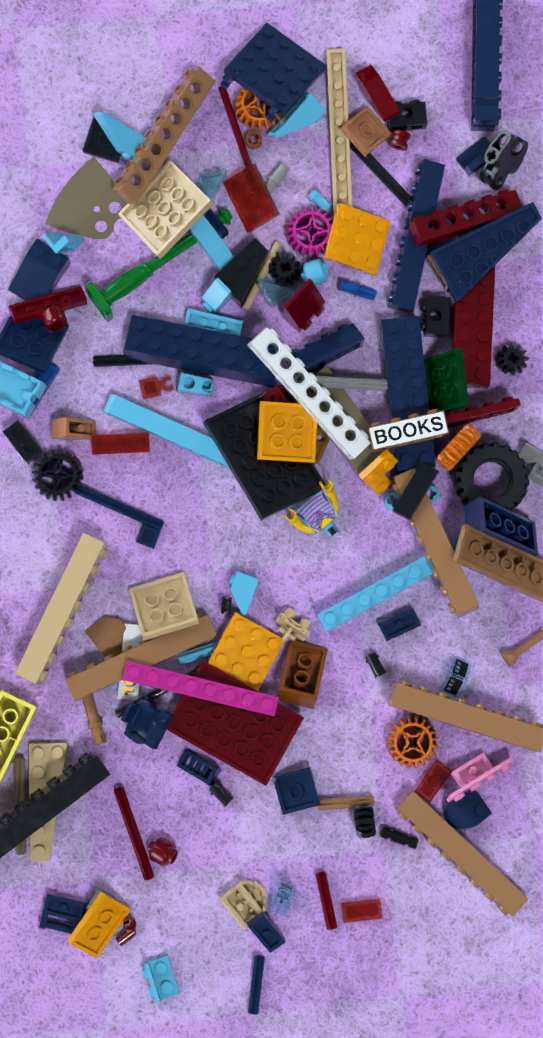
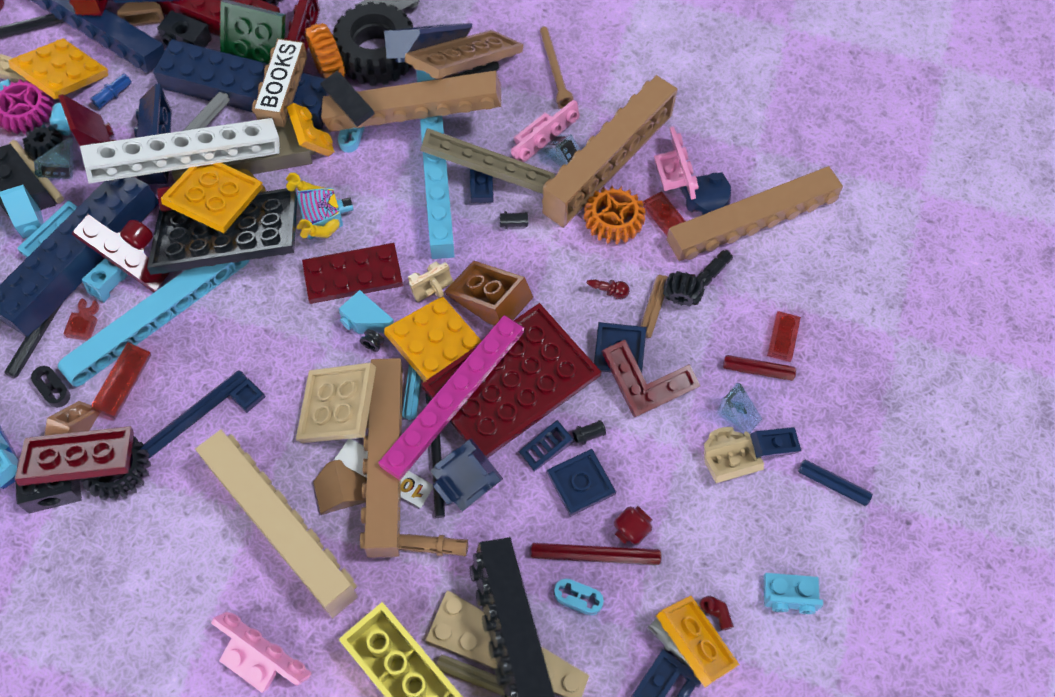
camera: 65 degrees left, 20 degrees down
(48, 453) = (75, 455): none -> plate
(93, 392) = (46, 389): none -> black beam
(94, 833) = (575, 602): none -> medium azure beam
(180, 803) = (581, 482): none -> dark blue plate
(216, 388) = (122, 248): none -> plate
(264, 821) = (636, 392): none -> plate
(277, 562) = (350, 271): none -> dark red plate
(349, 771) = (618, 289): none -> dark red bar
(411, 625) = (485, 161): none -> dark tan plate
(465, 652) = (543, 131): none -> bright pink bracket

